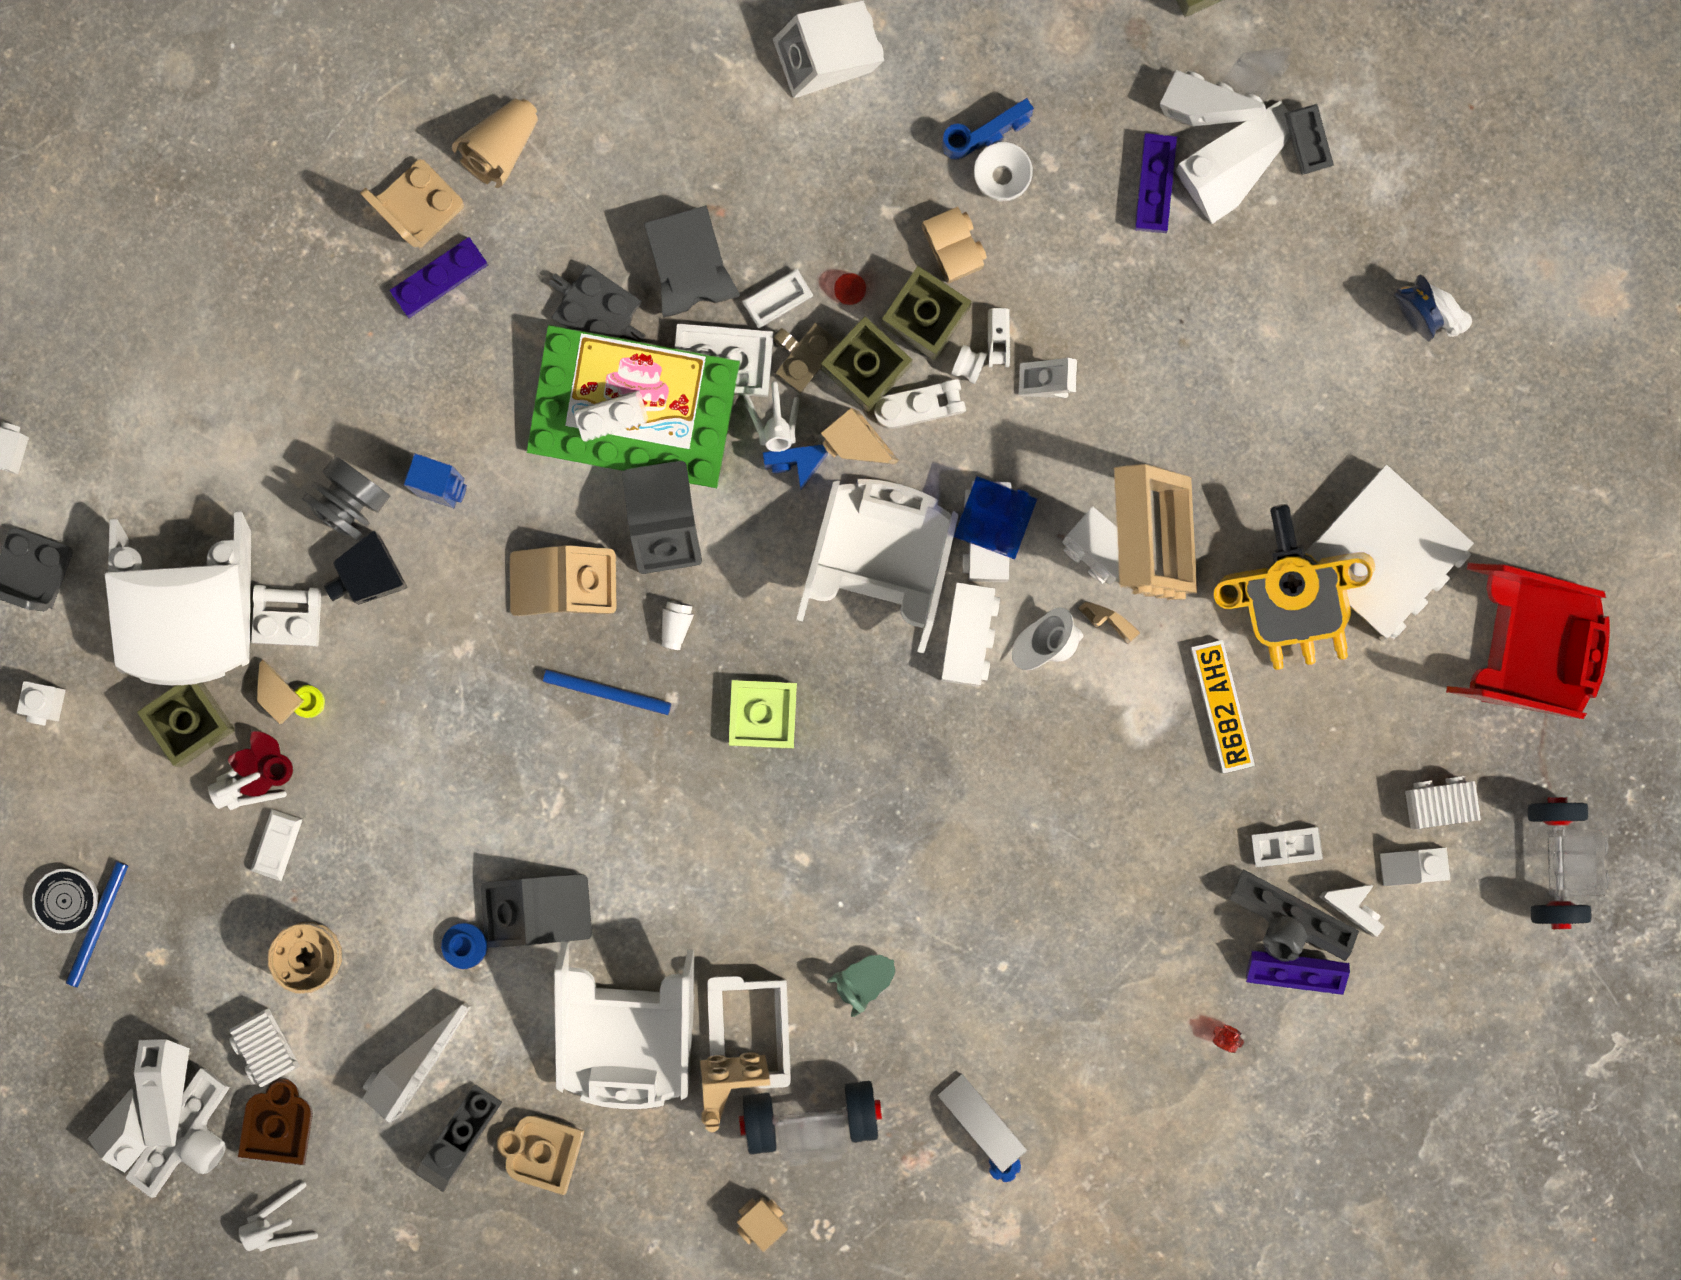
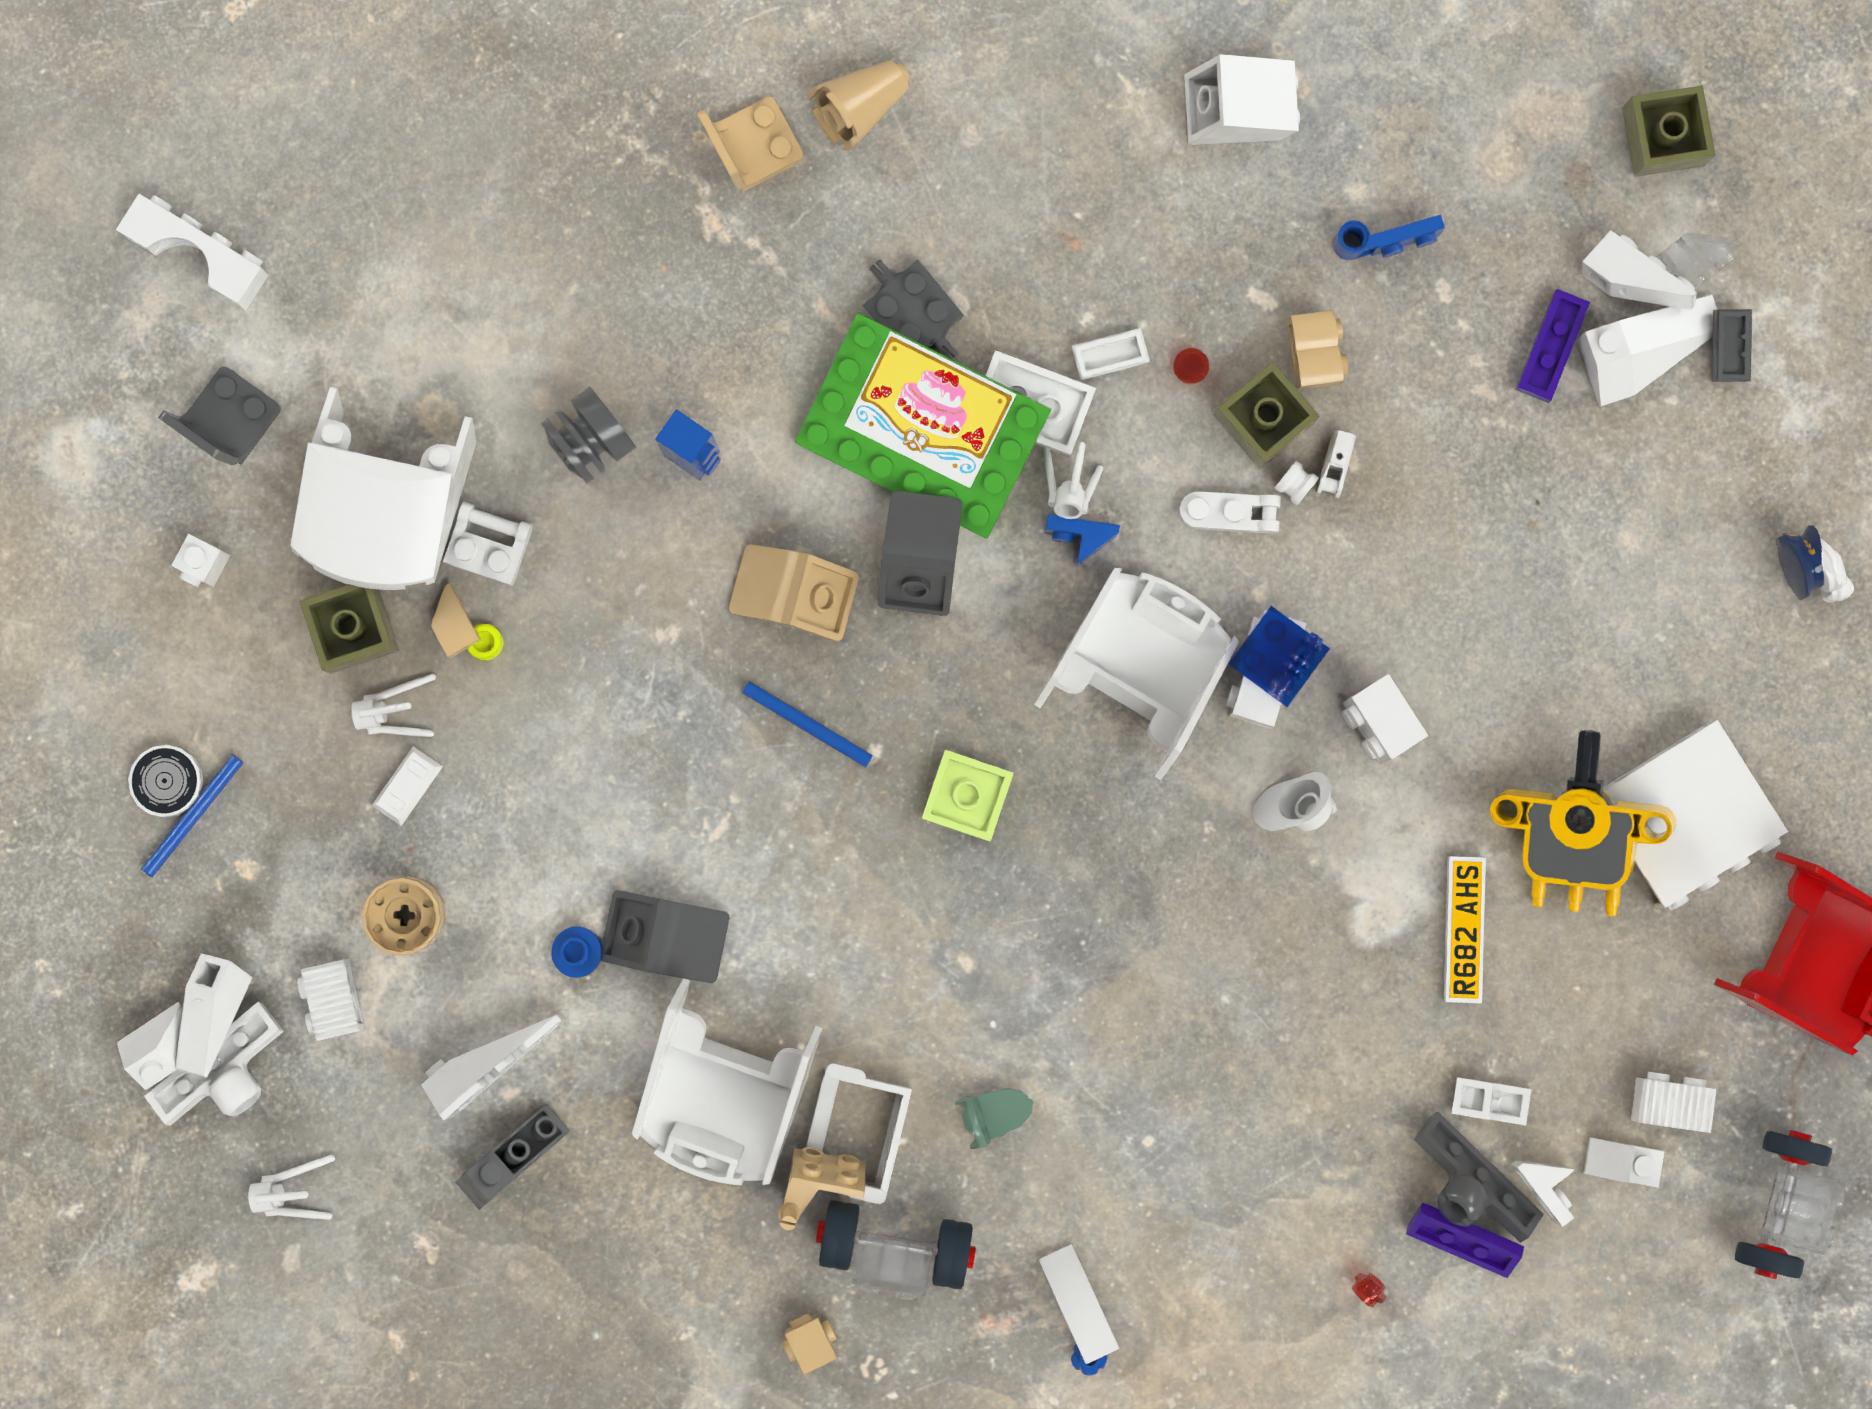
camera: 15 degrees right, 0 degrees up
(259, 758) = (415, 688): dark red plate -> none
(276, 1125) = (322, 1086): reddish brown plate -> none
(366, 572) = (586, 521): black torso -> none
(439, 277) = (754, 228): dark purple plate -> none
(541, 1152) = (595, 1197): tan plate -> none
(611, 416) = (897, 429): white brick -> none
(675, 624) = (901, 671): white cone -> none
(688, 261) = (1027, 286): dark grey piece -> none
(804, 356) = (1122, 424): dark tan plate -> none
(856, 440) = (1152, 530): tan slope -> none
(866, 364) = (1186, 451): olive brick -> none
(969, 635) = (1214, 774): white brick -> none
(1007, 156) = (1404, 274): white piece -> none
(1048, 378) = (1377, 522): white slope -> none
(1098, 614) = (1359, 792): tan slope -> none
(1135, 531) = (1429, 715): tan window -> none

